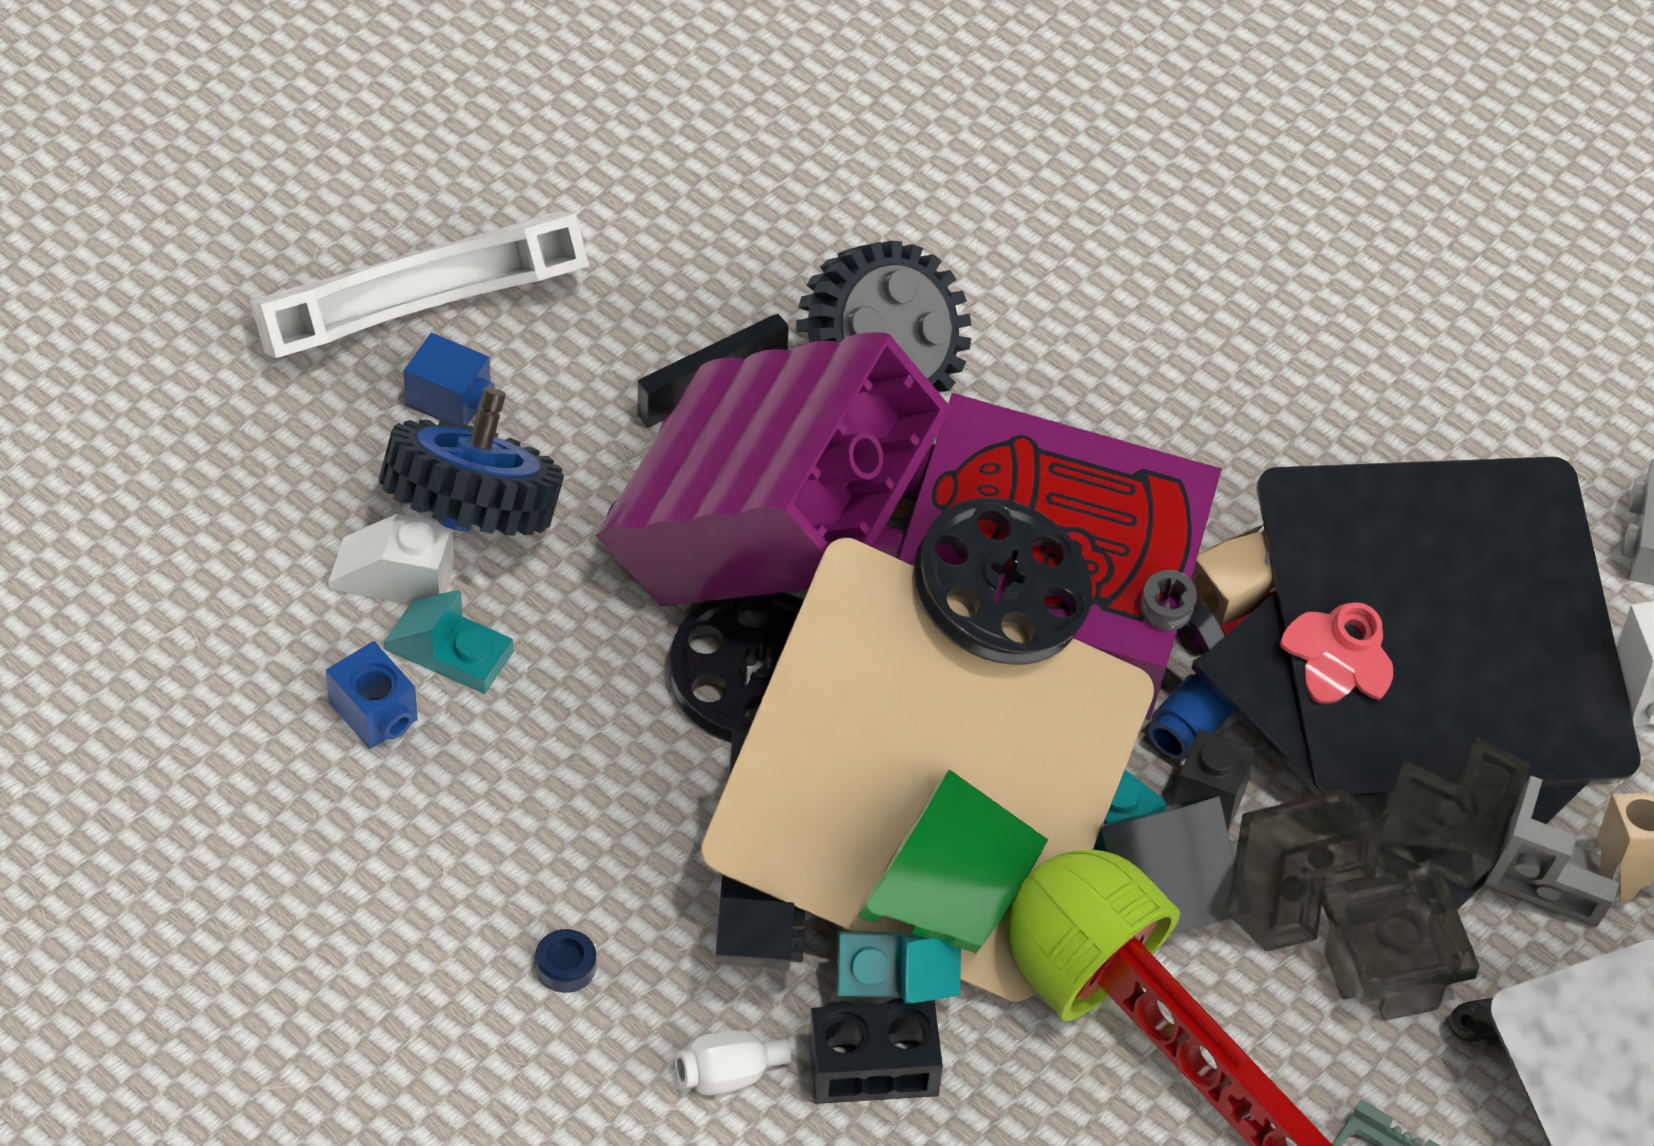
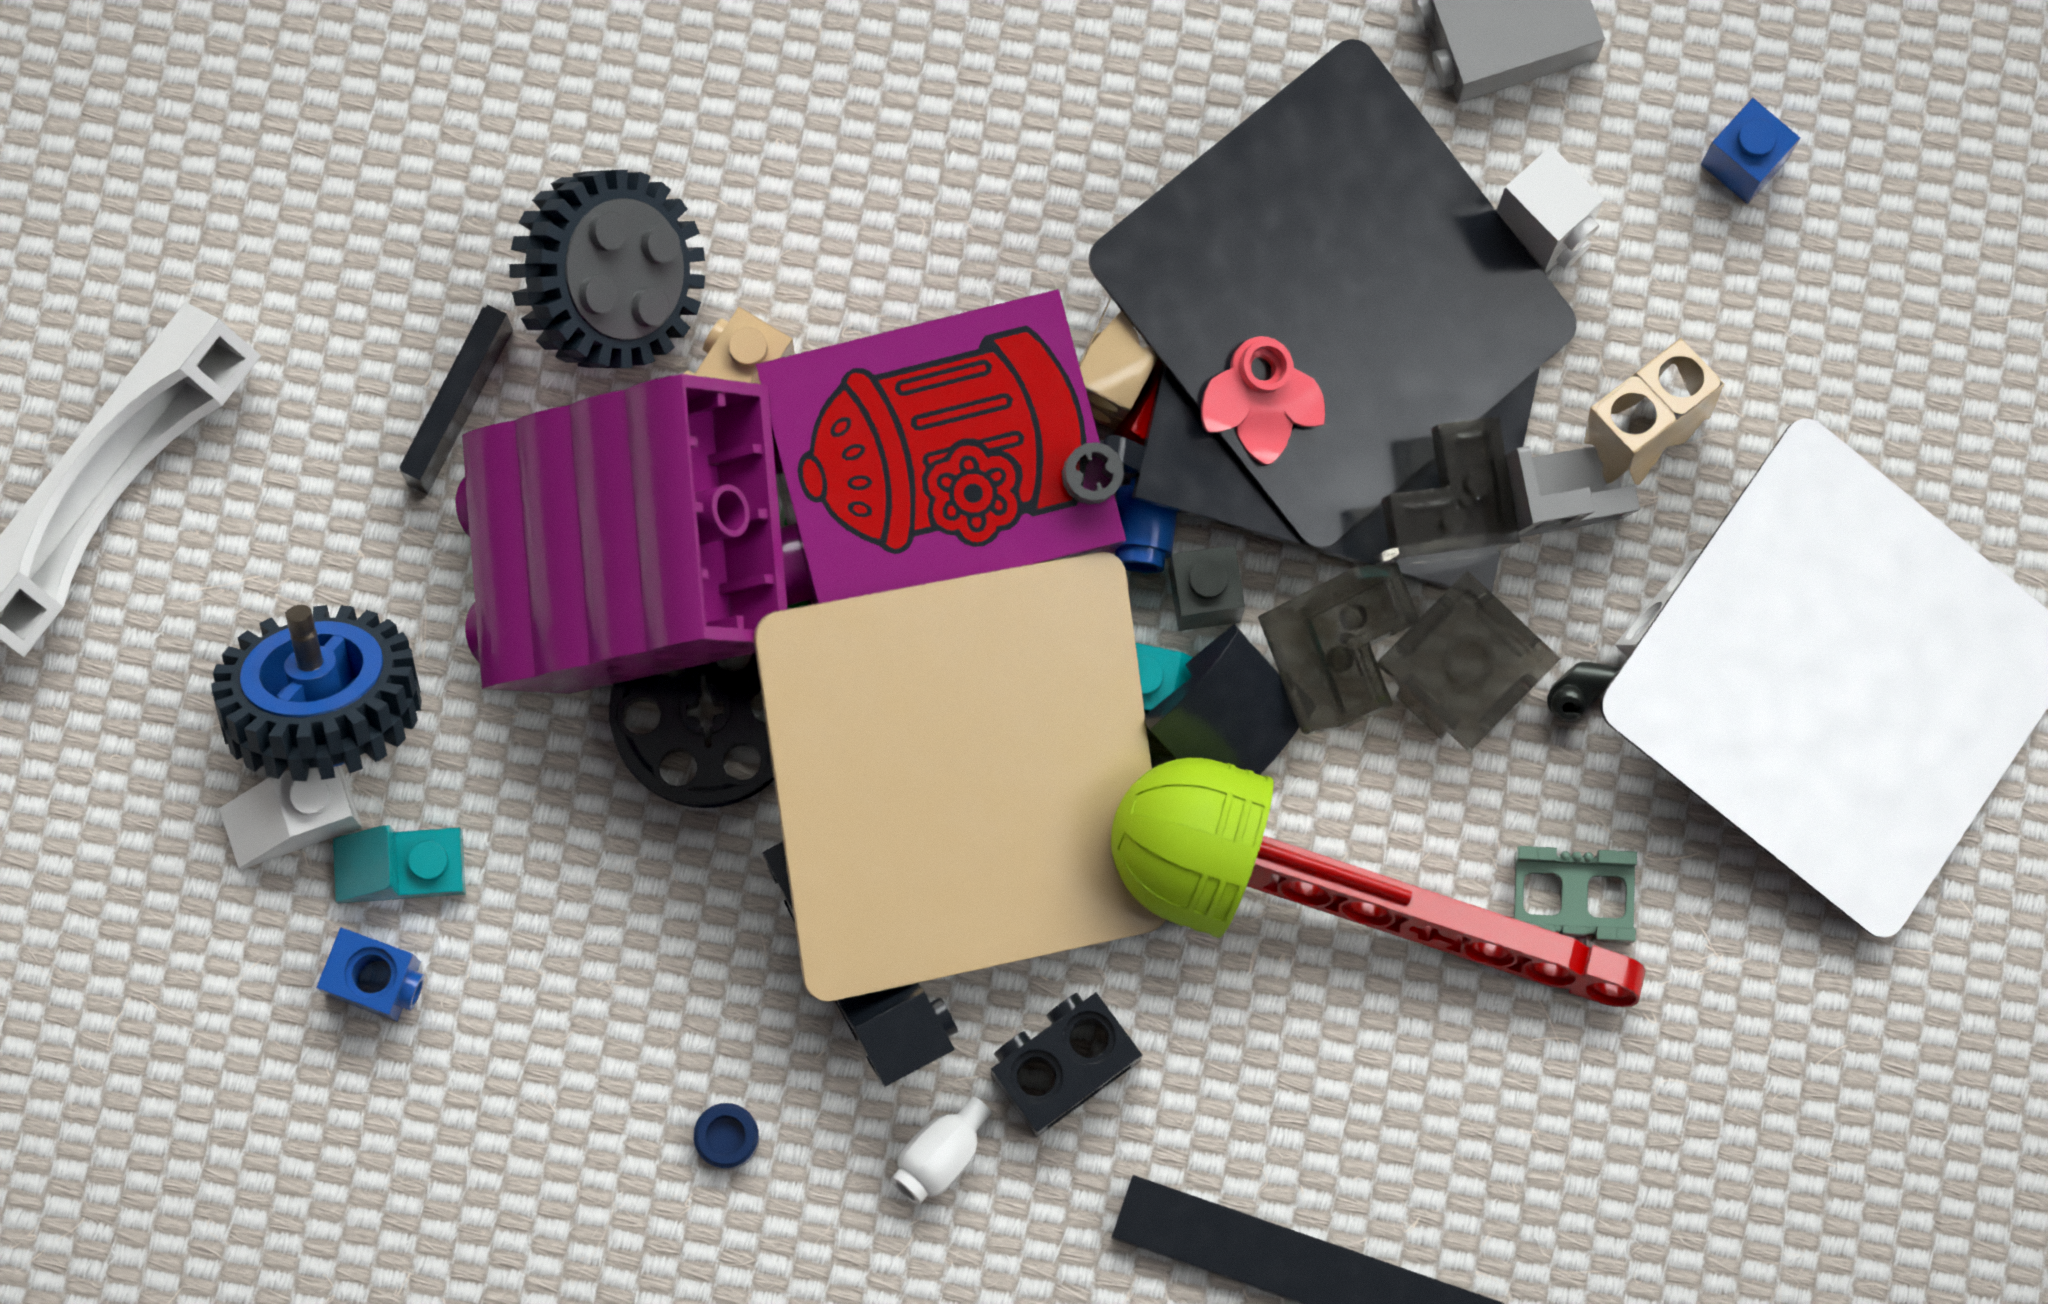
camera: 30 degrees left, 25 degrees up
(446, 380) = (207, 571): blue brick -> none
(896, 966) = (1049, 968): teal slope -> none
(956, 867) = (1048, 863): green slope -> none
(979, 577) = (916, 581): black wedge -> none

